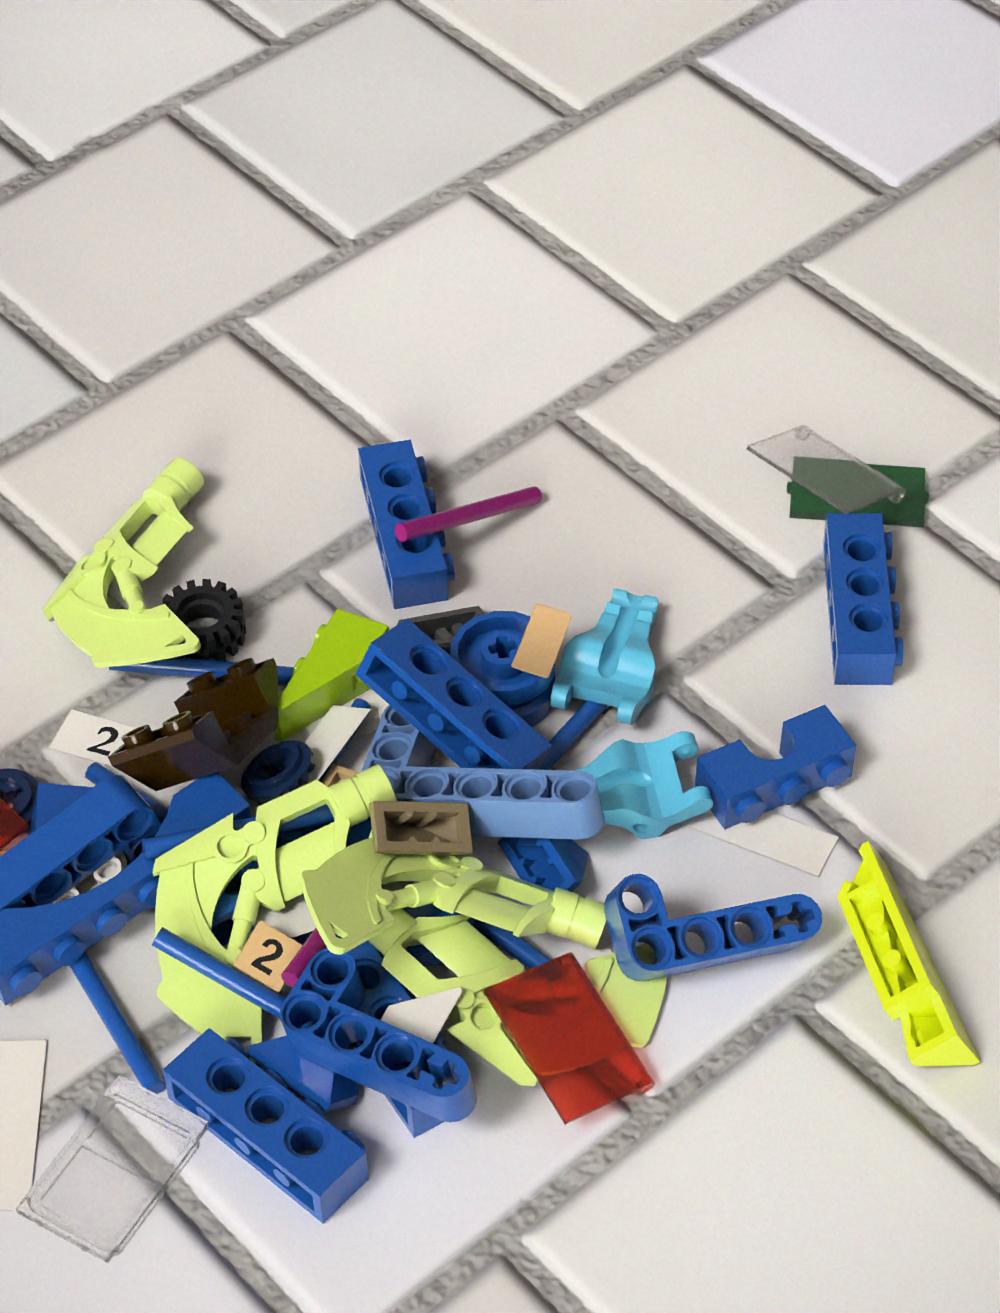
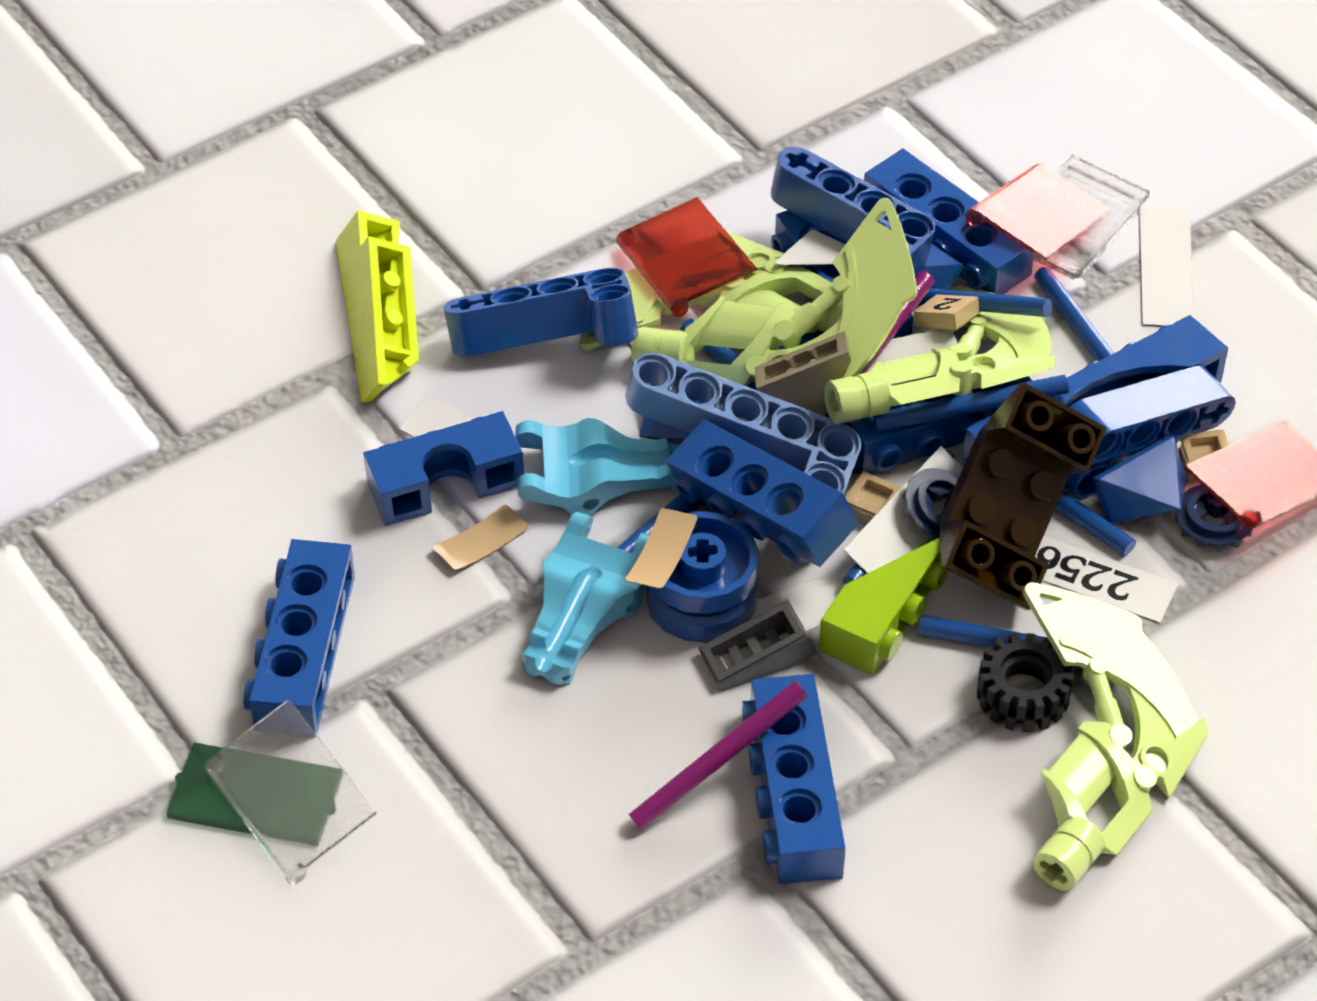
camera: 175 degrees left, 0 degrees up
(155, 1132) = (1038, 211): none -> clear red piece
(729, 722) = (482, 538): none -> tan sticker

